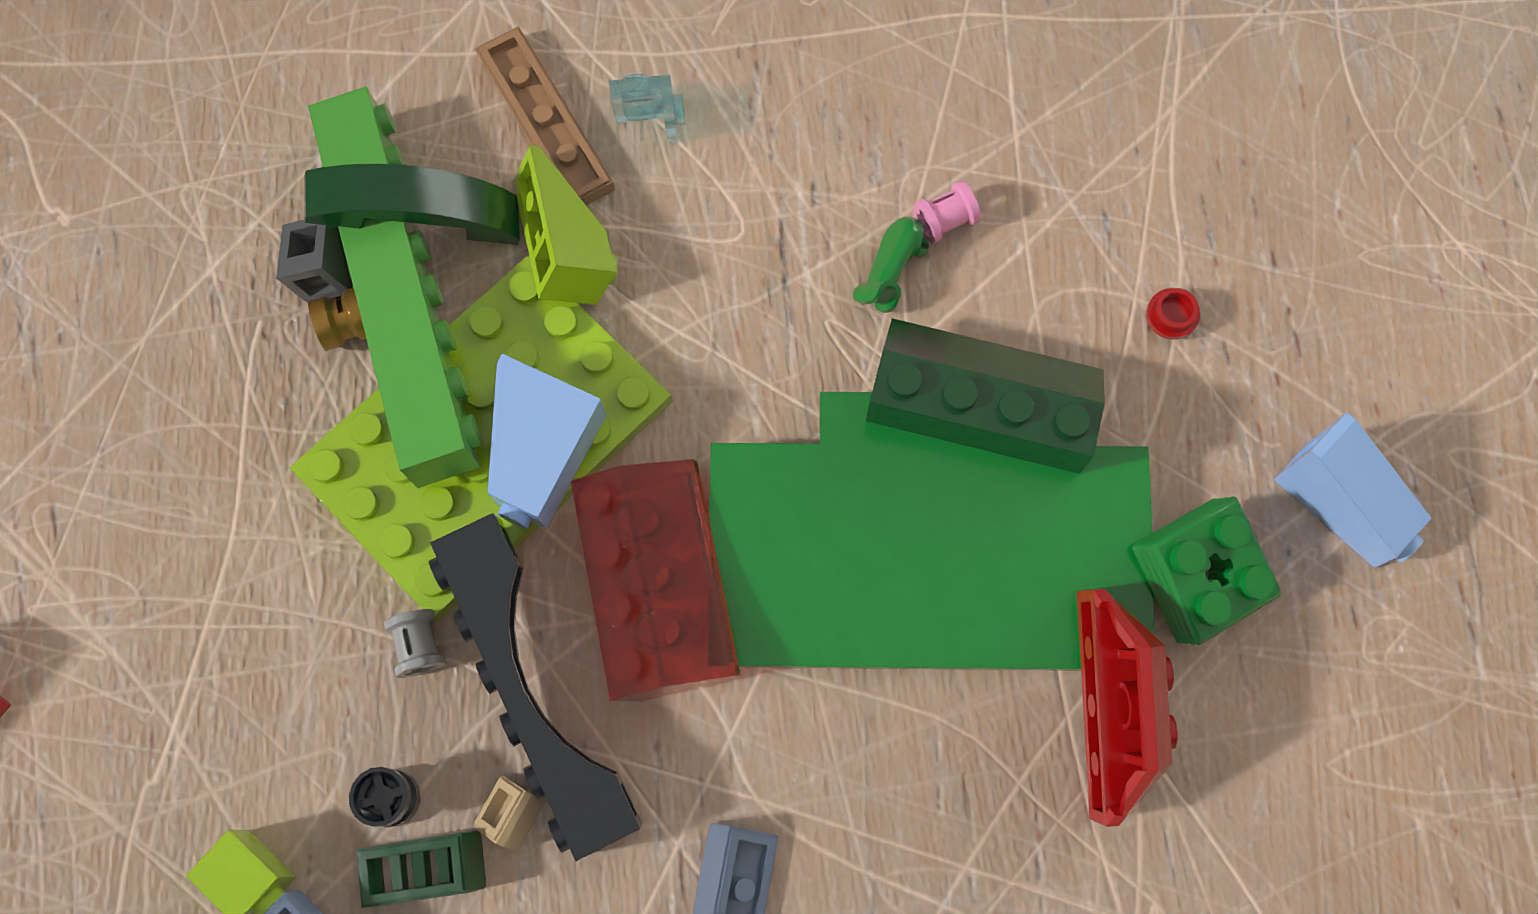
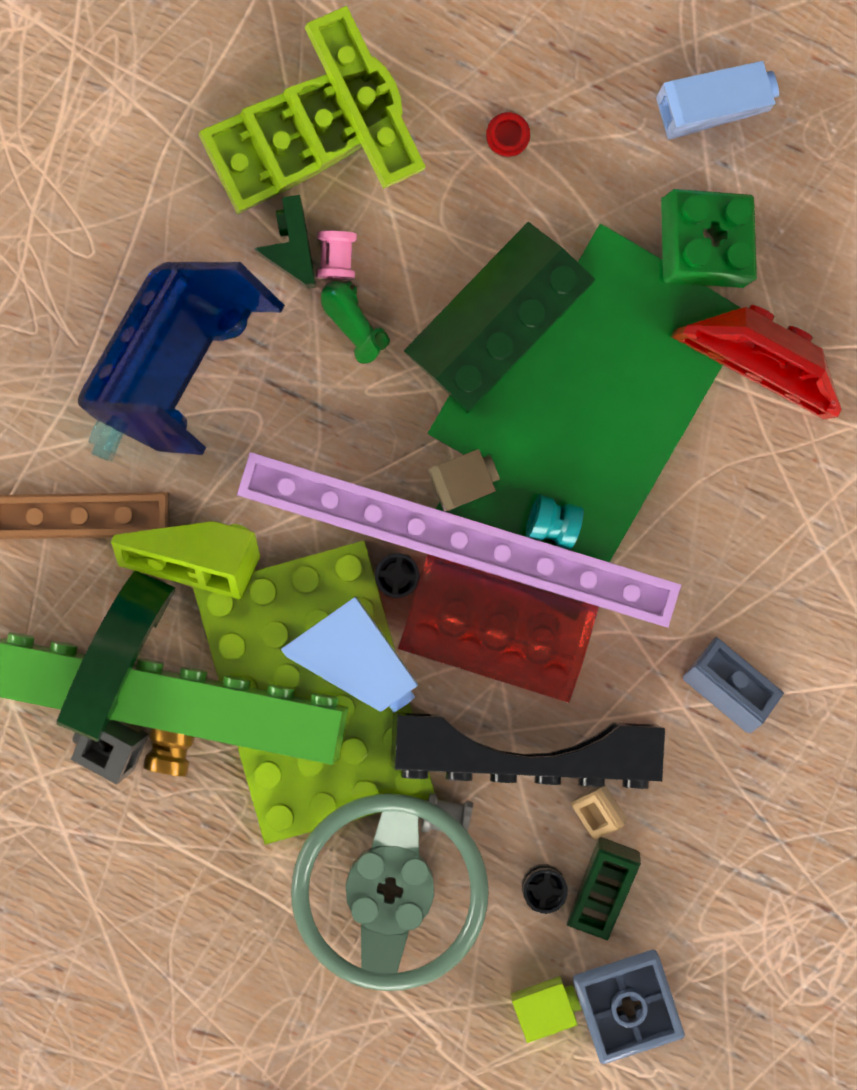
camera: 60 degrees left, 15 degrees up
(265, 630) = (384, 920): none -> sand green piece
(648, 435) = (397, 575): none -> black wheel
(728, 494) = (458, 539): none -> lavender plate
(759, 97) = (163, 344): none -> clear blue windscreen
(790, 439) = (463, 479): none -> dark tan slope
(803, 571) = (554, 522): none -> teal wheel
(928, 171) = (293, 256): none -> dark green slope
(1065, 123) = (316, 123): none -> lime slope

